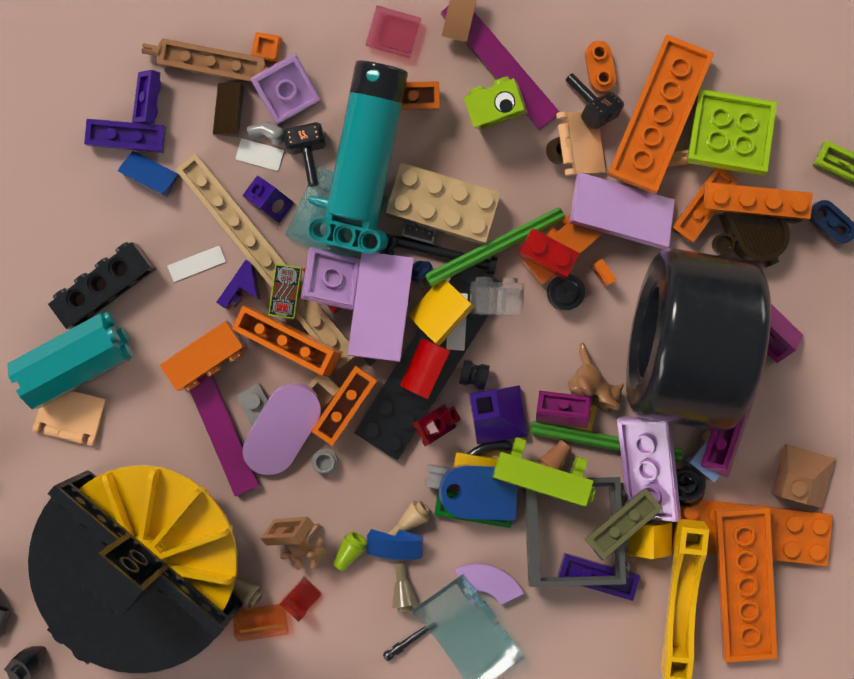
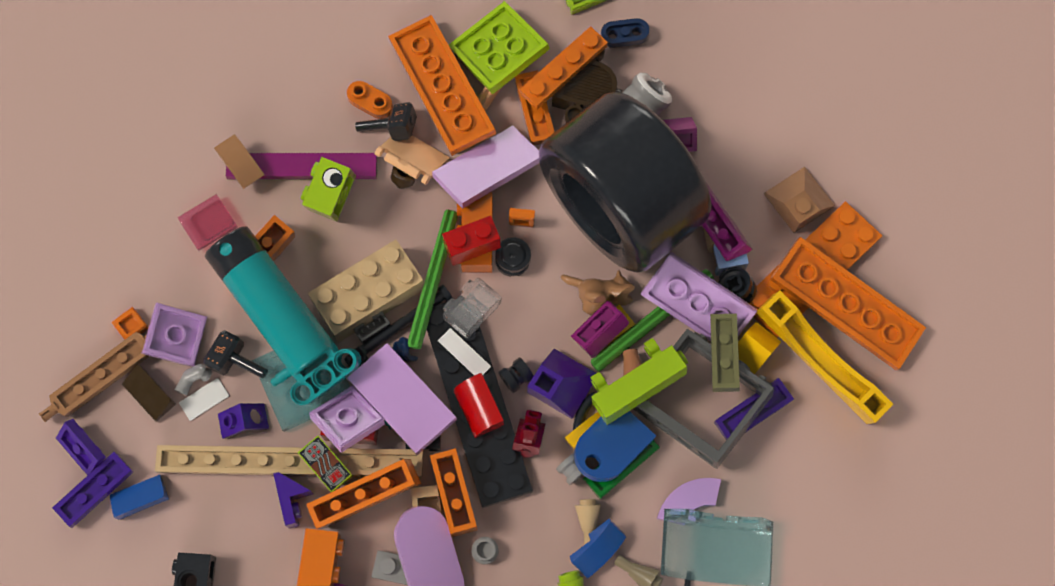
camera: 50 degrees left, 15 degrees down
(196, 263) = (241, 521): white sticker -> none
(440, 311) = (445, 356): yellow slope -> none
(784, 288) = (650, 92): none -> light grey piece

